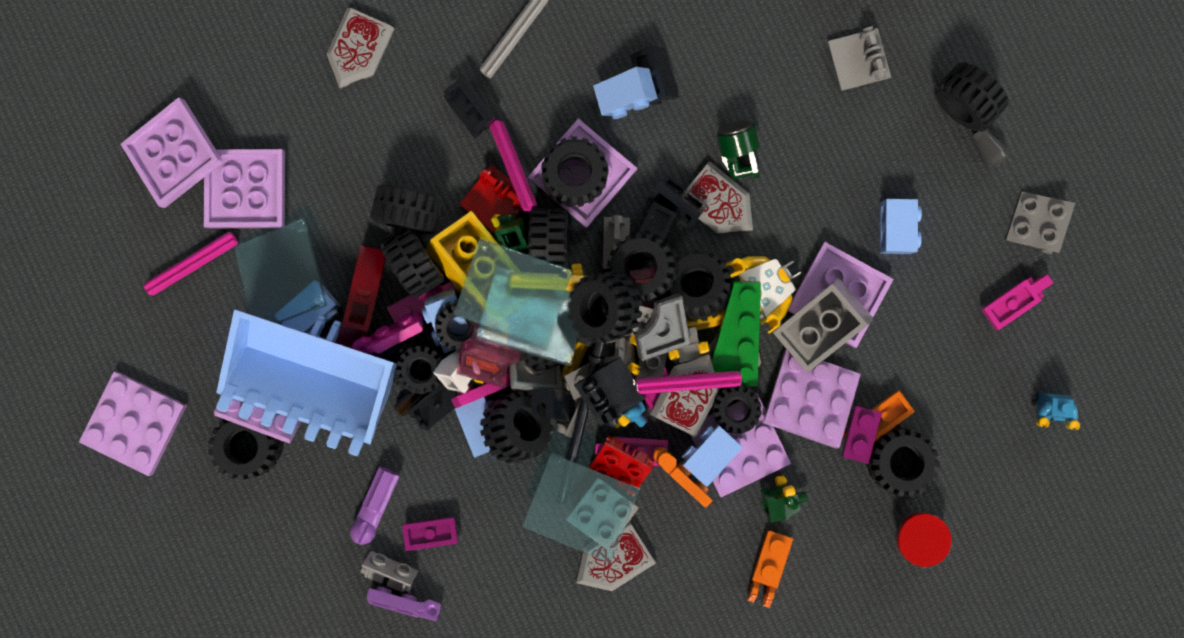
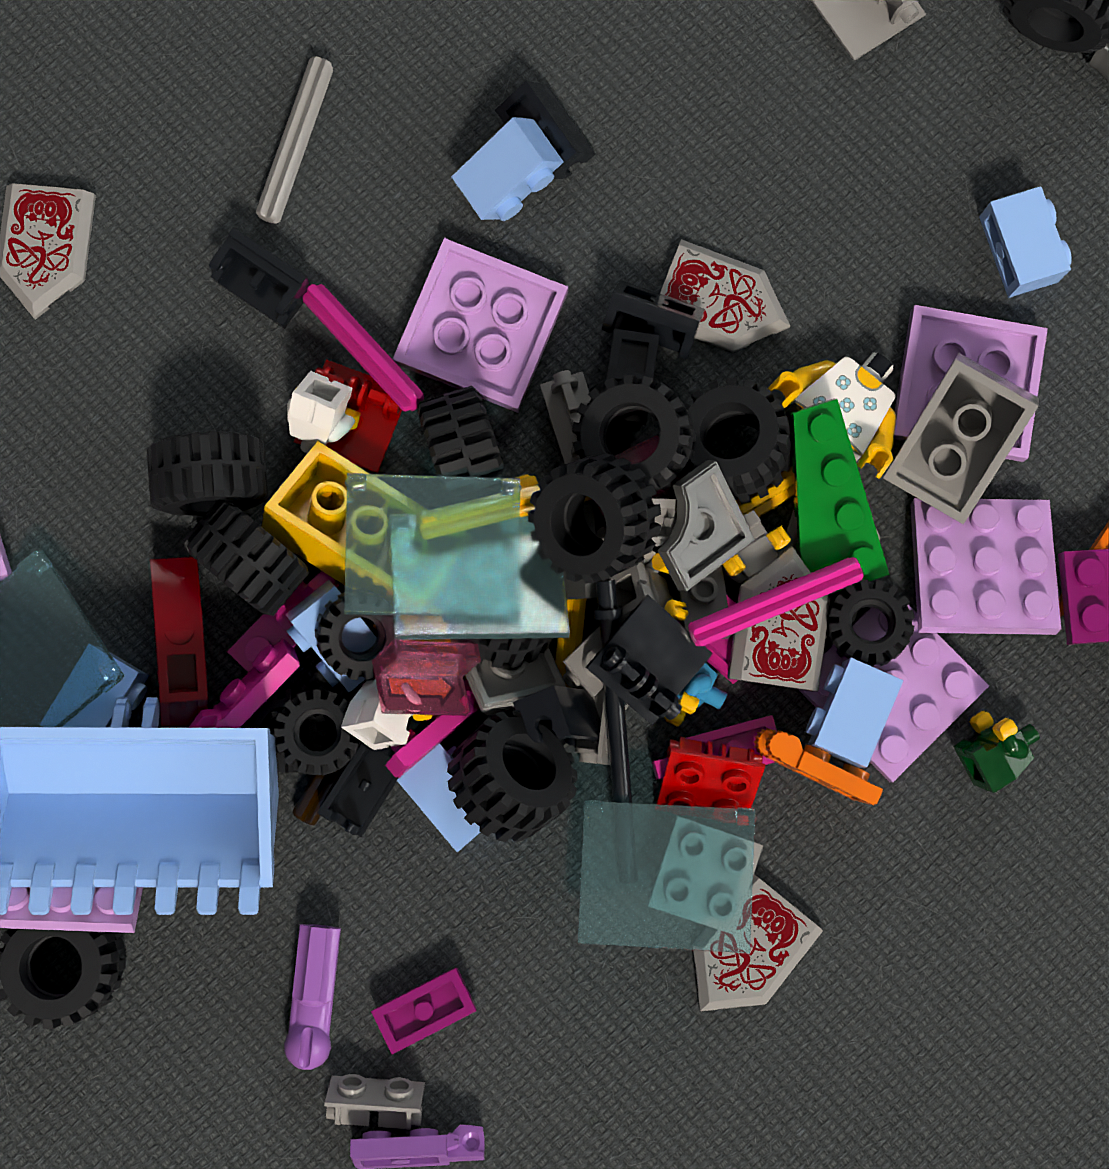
camera: 20 degrees left, 5 degrees down
(478, 194) = (320, 411): none -> white piece
(512, 231) = (395, 451): dark green piece -> none
(568, 150) = (460, 286): black tyre -> none
(735, 141) = (716, 188): dark green piece -> none
(769, 565) = (1015, 870): orange hinge -> none

